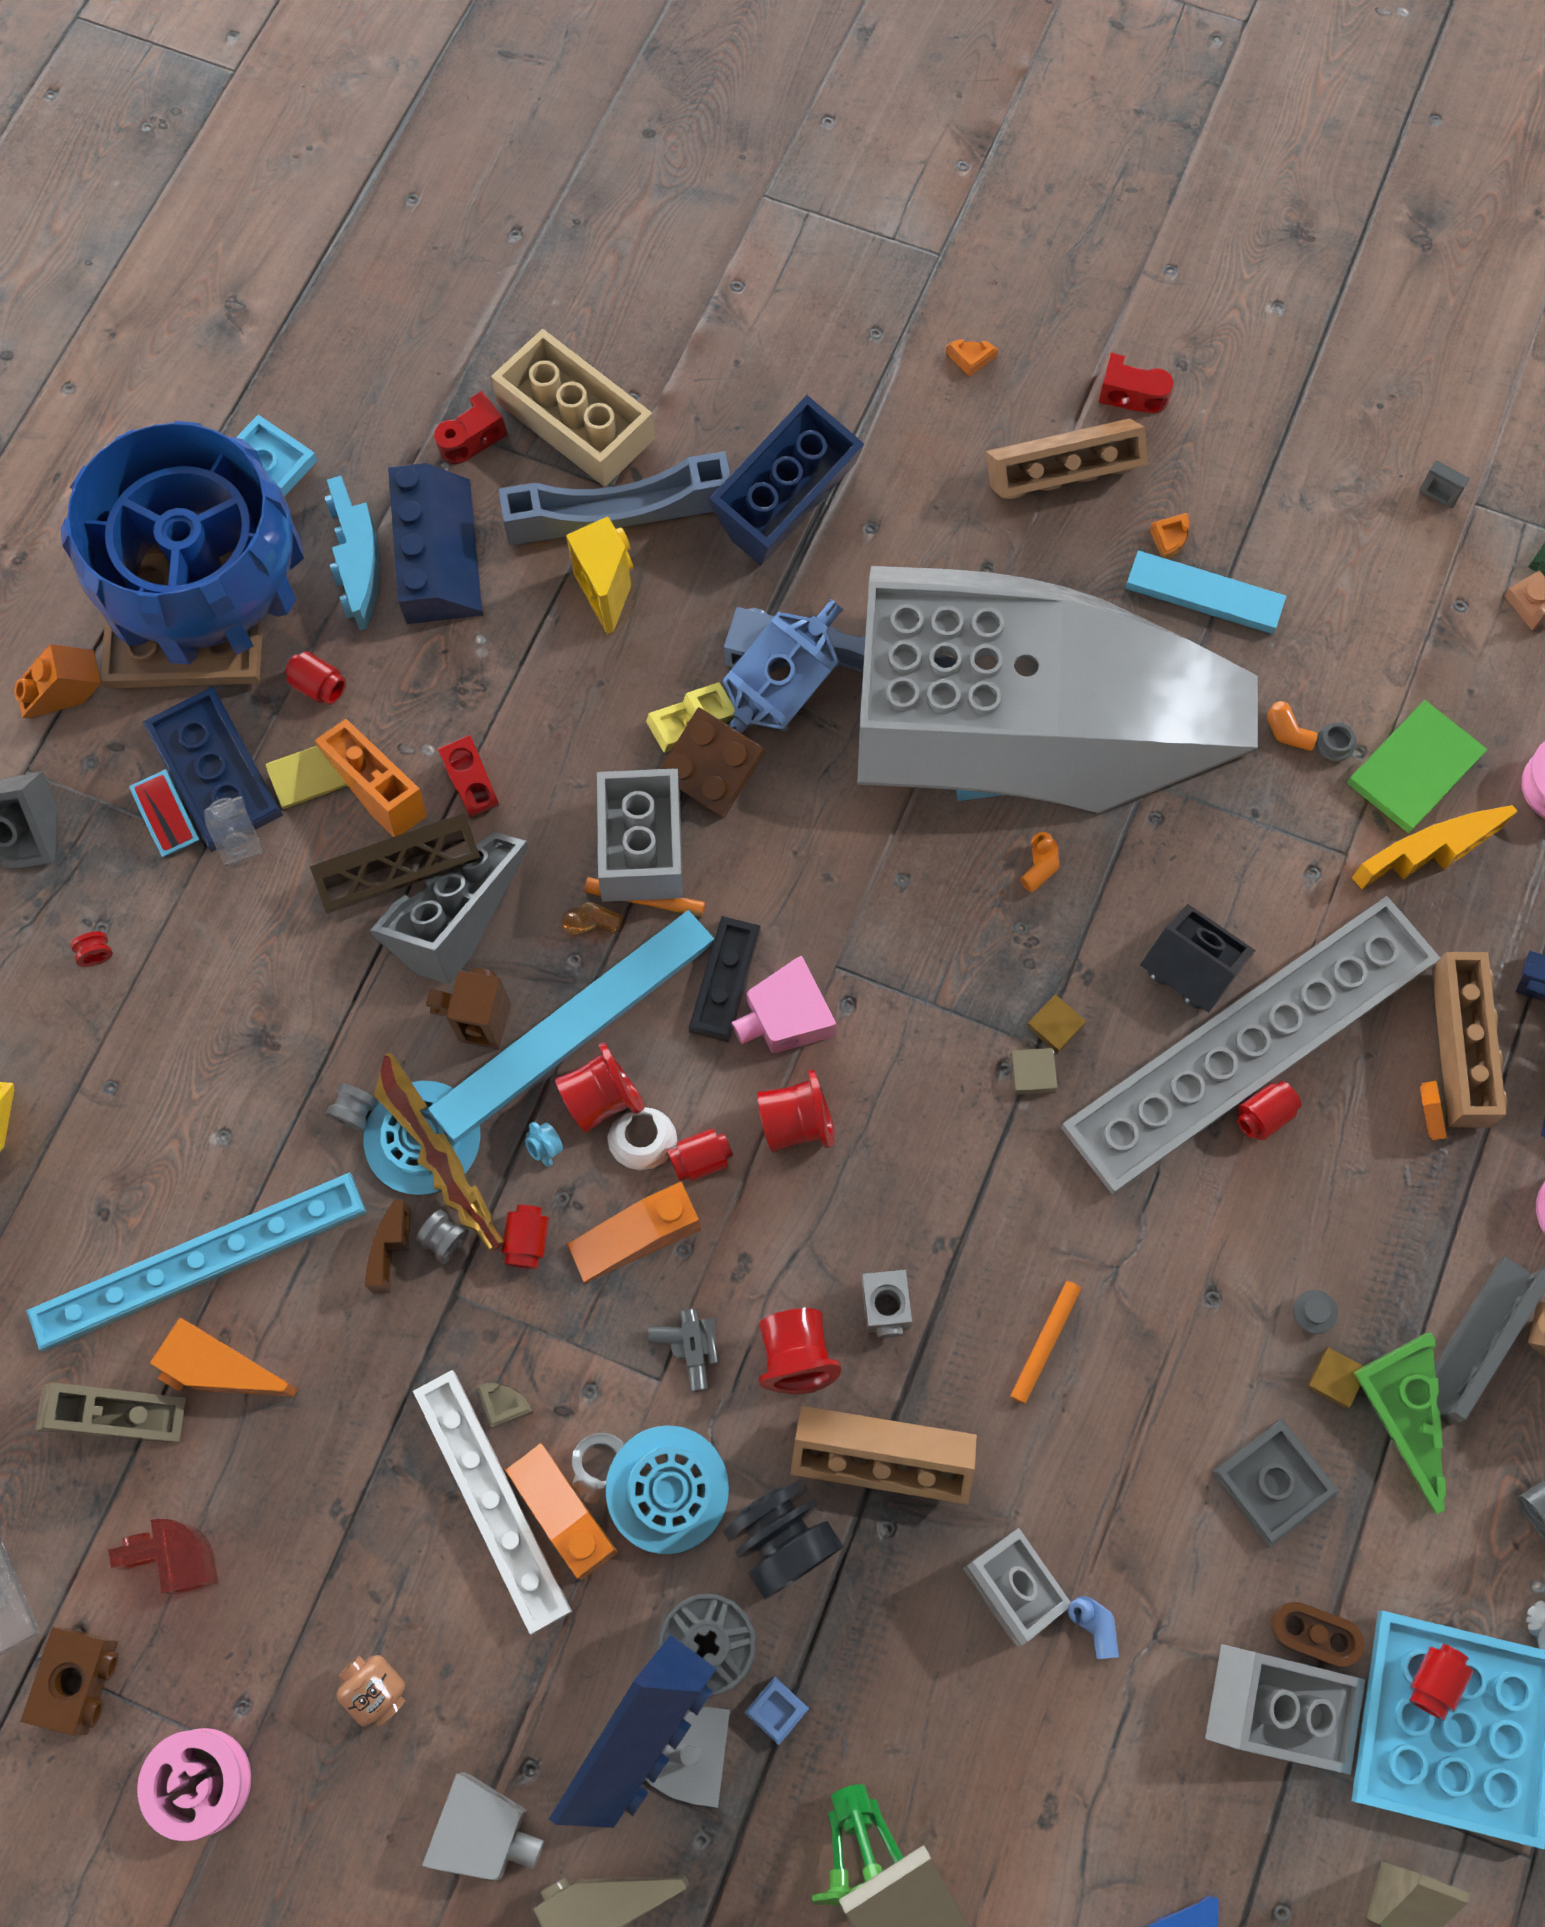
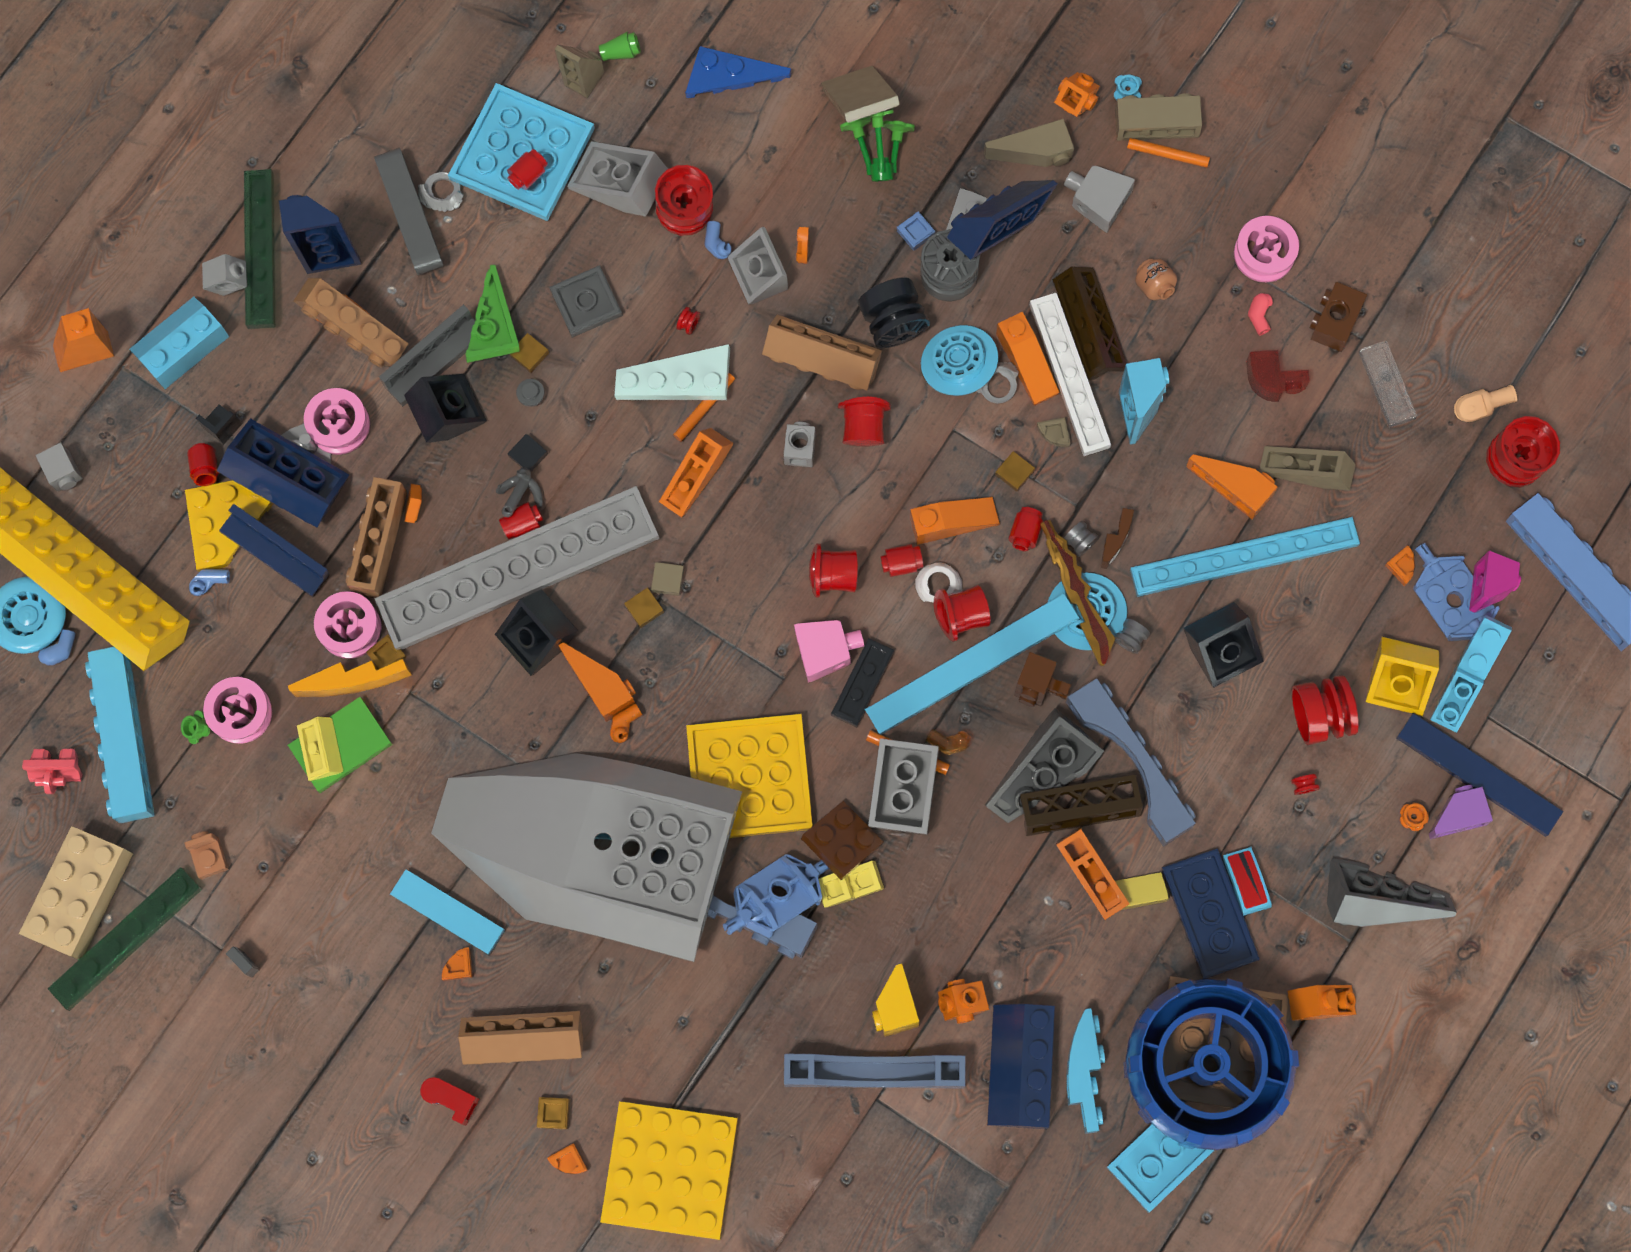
camera: 165 degrees left, 5 degrees up
(53, 1047) = (1331, 708): none -> red wheel
(203, 1669) = (1257, 311): none -> coral arm
(218, 1122) = (1224, 644): none -> black slope
(232, 830) = (1198, 855): clear bracket -> none
(315, 678) = (1126, 968): red brick -> none
(365, 1458) = (1141, 394): none -> medium azure slope
(385, 988) = (1097, 712): none -> sand blue arch
(468, 775) = (1021, 864): red leg -> none
(470, 431) = (991, 1159): red leg -> none
(475, 1593) = (1085, 321): none -> dark brown fence
(519, 597) = (962, 1001): none -> orange brick
(543, 1143) = (1005, 588): medium azure plate -> none
(555, 1328) = (1015, 471): none -> pearl gold tile
(573, 407) = (895, 1162): tan brick -> none
(692, 1343) = (928, 447): dark grey piece -> none
(784, 479) = (740, 1055): dark blue slope -> none
(845, 837) = (761, 760): none -> yellow plate
(852, 360) = (669, 1170): none -> yellow plate
(955, 1647) = (803, 245): none -> orange tile
(1004, 399) = (553, 1113): none -> pearl gold tile
(1031, 1234) = (696, 470): none -> orange slope
(1088, 1379) = (682, 377): none -> light aqua wing
(1089, 903) = (601, 683): none -> orange slope
(1105, 1475) = (688, 320): none -> red bush
(1184, 1656) = (682, 185): none -> red wheel
(1286, 729) = (423, 790): orange arm -> none
(1286, 1166) = (521, 482): none -> dark grey piece
(1290, 1217) = (527, 453): none -> black tile
(1315, 1634) = (589, 213): reddish brown plate -> none
(1336, 742) = (391, 773): dark grey plate -> none
(1400, 889) = (384, 653): none -> pearl gold tile
(1436, 1261) = (444, 407): none -> black slope
(1441, 749) = (320, 748): none -> light yellow slope
(1486, 906) = (332, 617): none -> bright pink wheel

